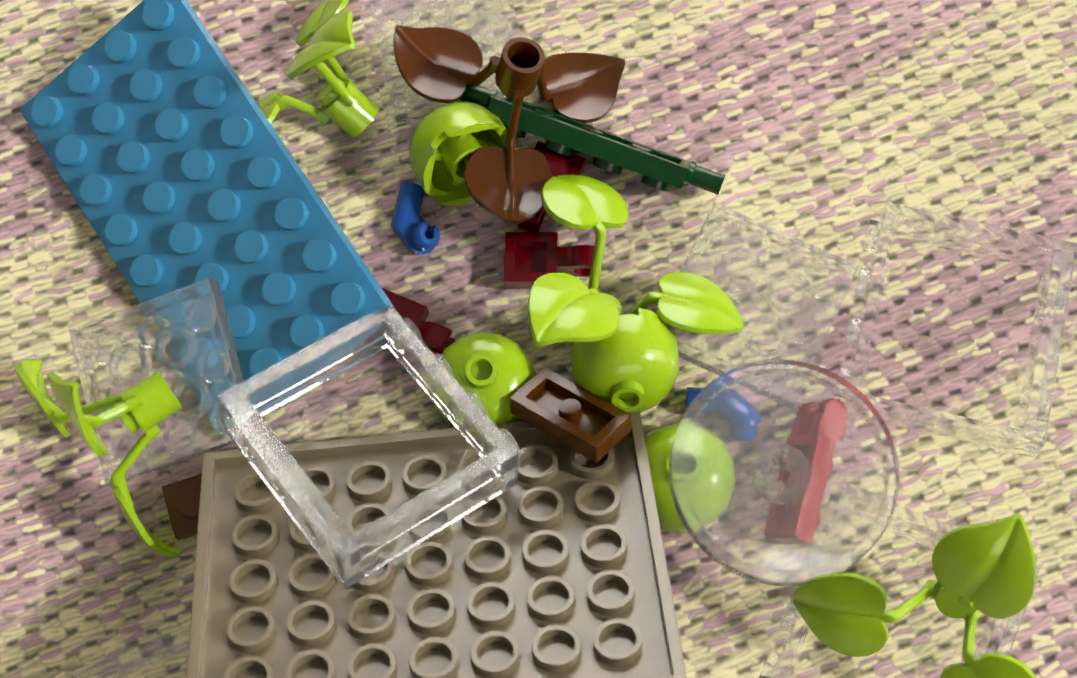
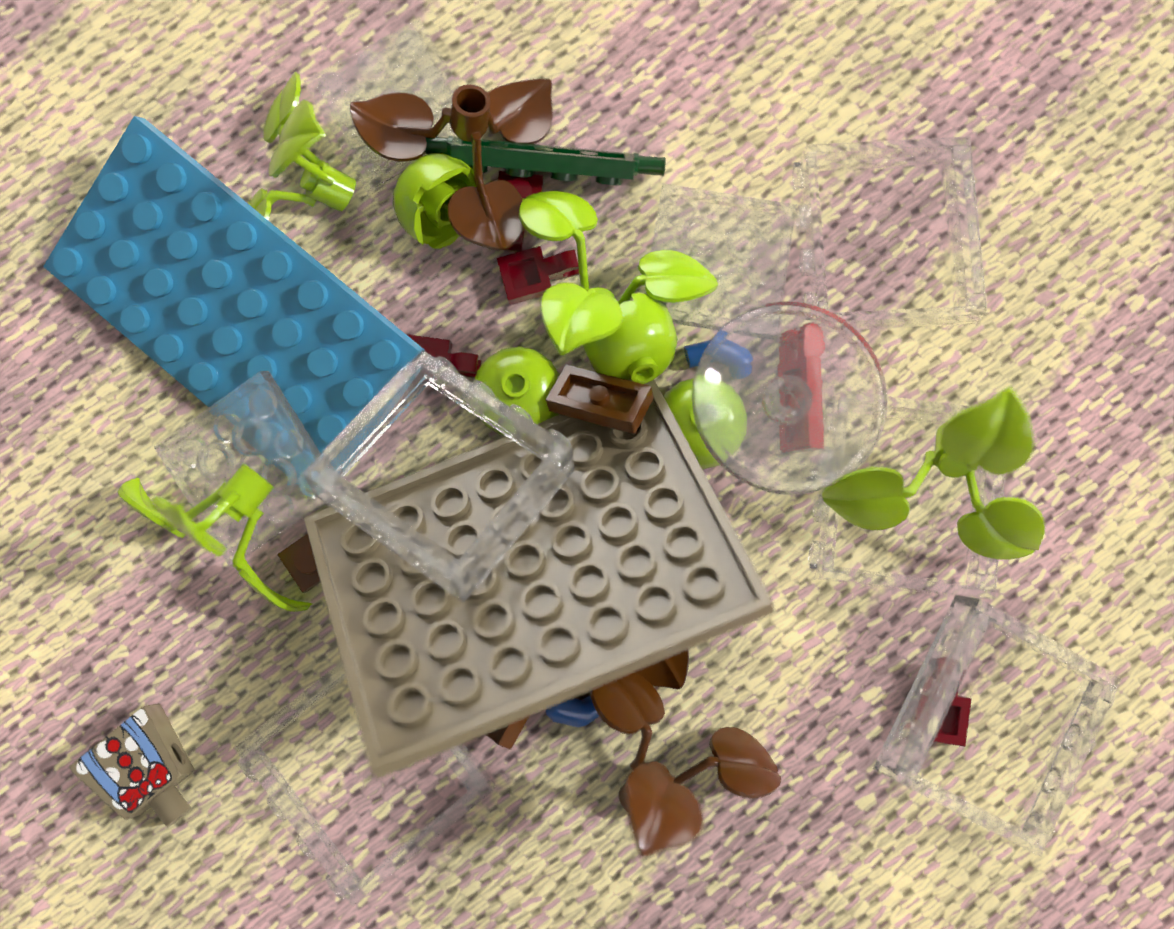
camera: 20 degrees left, 10 degrees up
(409, 224) = (413, 273): blue arm -> none

